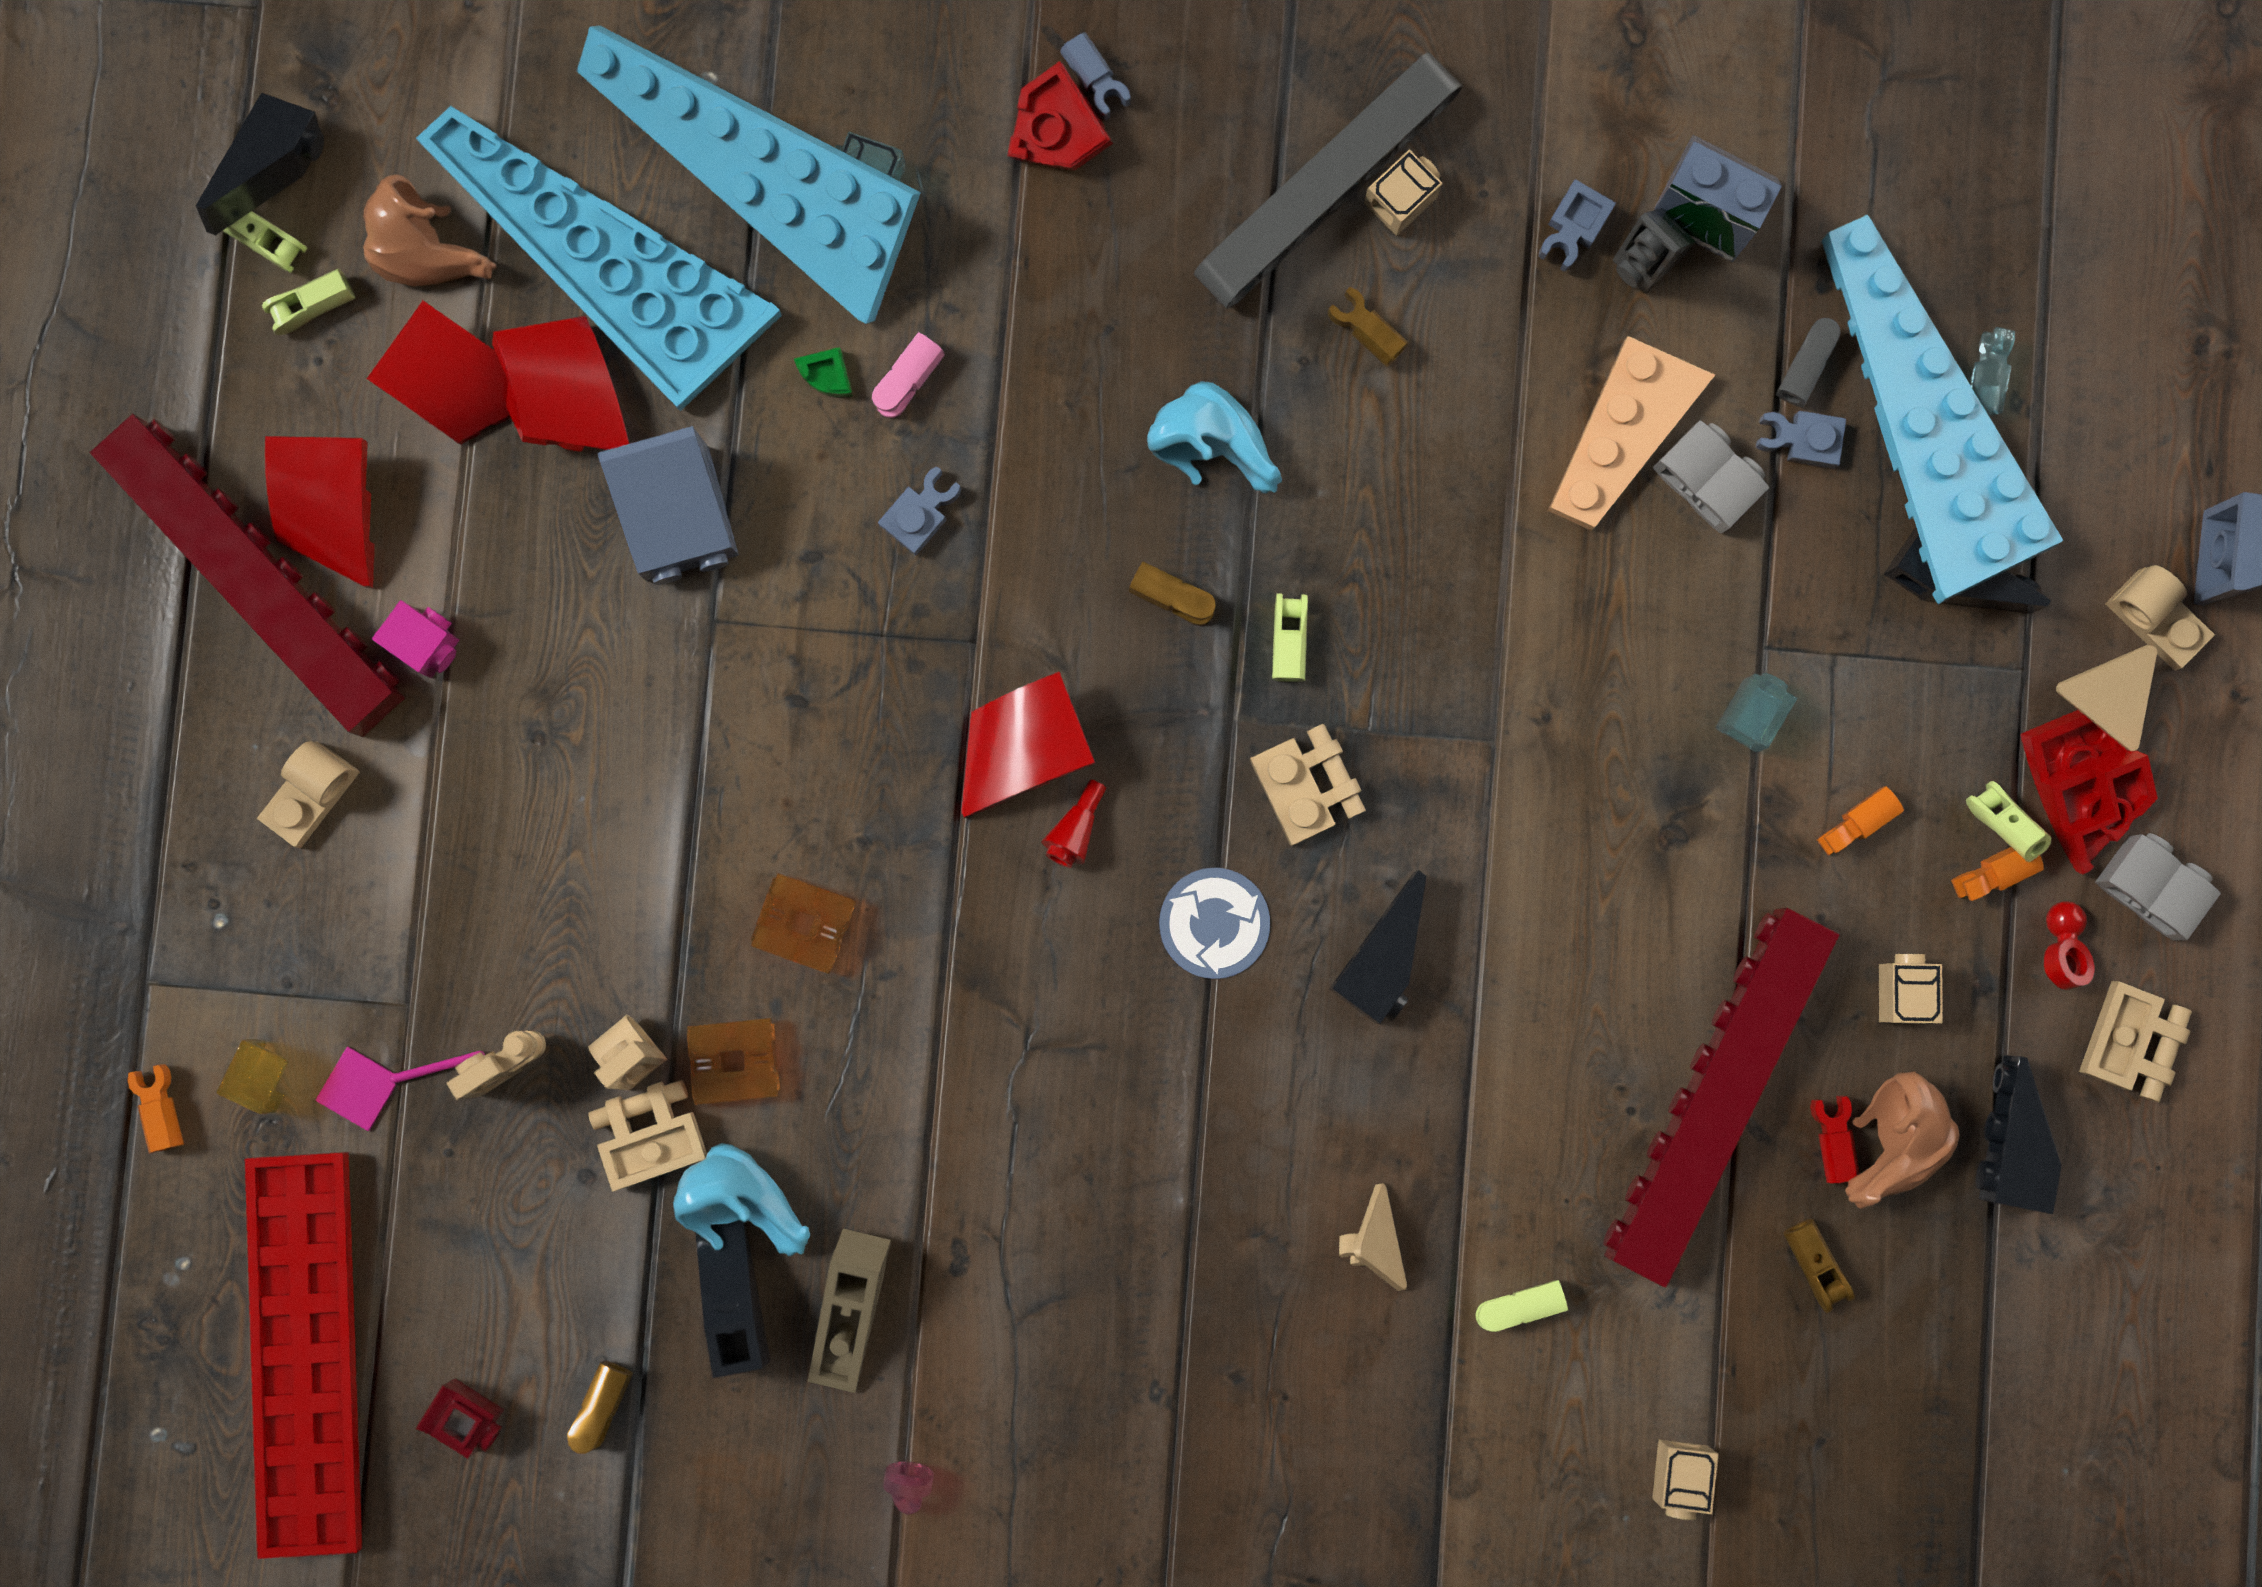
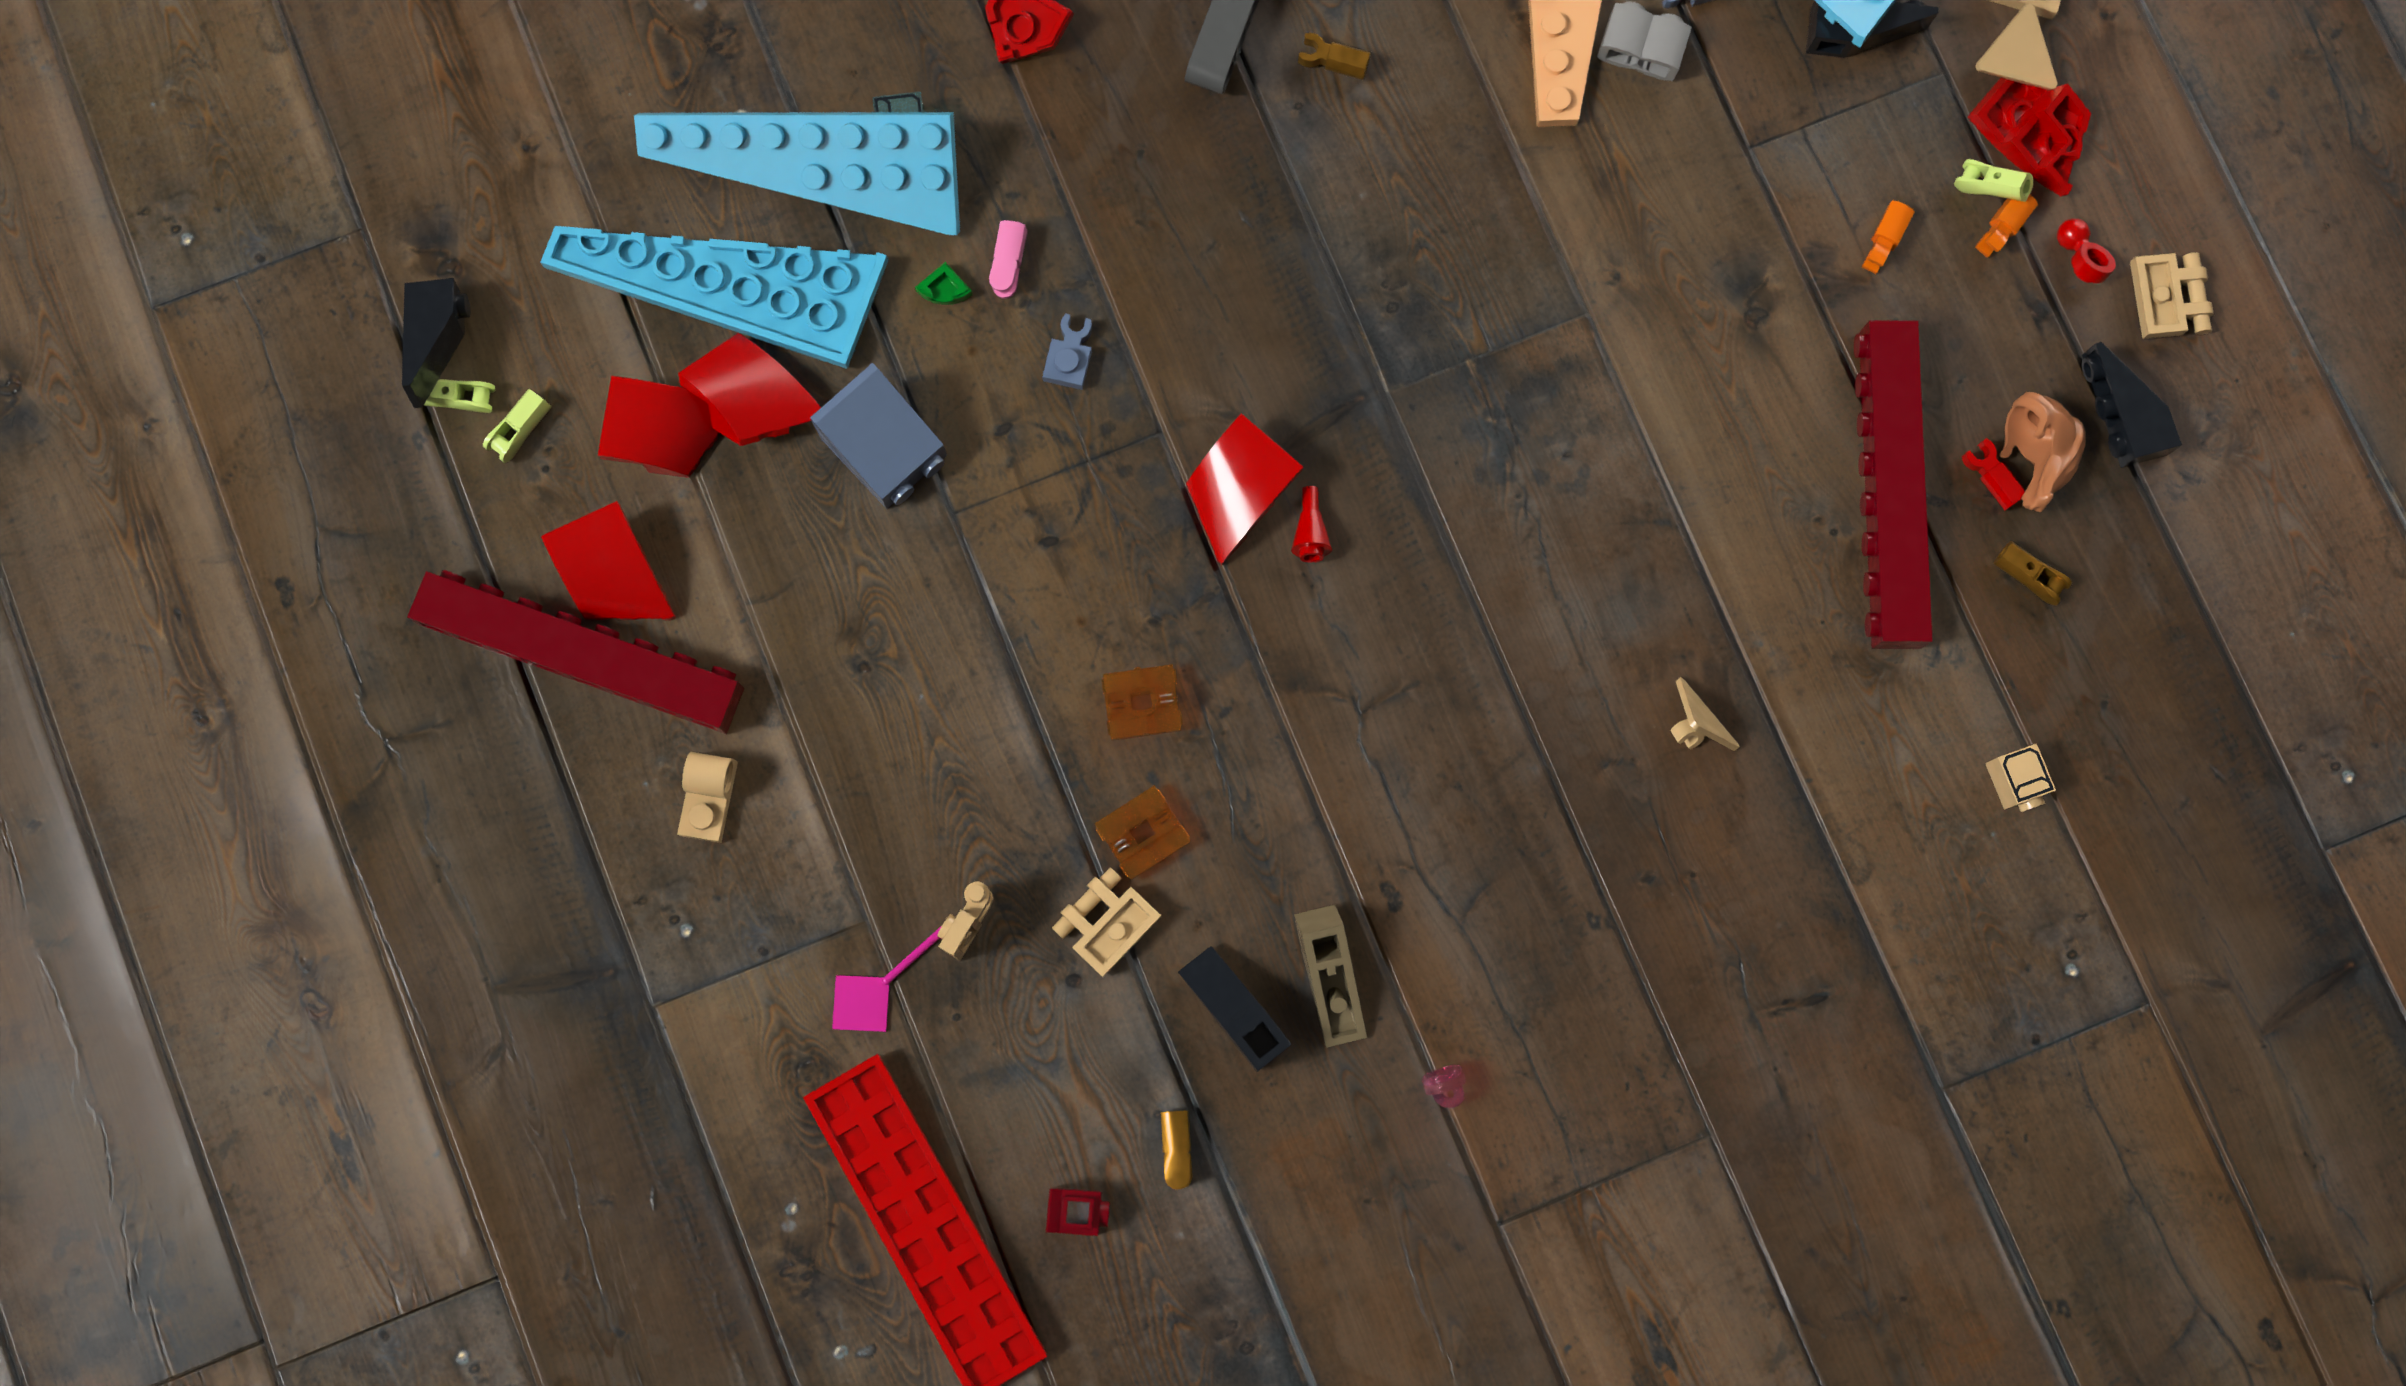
camera: 30 degrees left, 5 degrees down
(157, 1110) = (714, 1099): orange bar -> none
(254, 1077) = (779, 1029): clear yellow panel -> none
(404, 244) = (574, 349): nougat piece -> none
(418, 638) = (734, 635): dark pink brick -> none
(625, 1055) = (1058, 866): tan plate -> none
(736, 1188) = (1194, 926): medium azure piece -> none
(1172, 594) = (1293, 321): pearl gold bar -> none
(1209, 425) = (1255, 183): medium azure piece -> none
(1214, 923) = (1451, 549): sticker -> none
(1290, 645) = (1398, 314): yellowish green bar -> none
(1294, 792) = (1461, 422): tan plate -> none
(1384, 960) = (1594, 511): black slope -> none
(1522, 1307) = (1832, 714): yellowish green bar -> none
(1757, 711) = (1769, 193): clear light blue brick -> none
(1910, 990) = (1990, 339): tan brick -> none
(2158, 886) = (2126, 175): light grey brick -> none

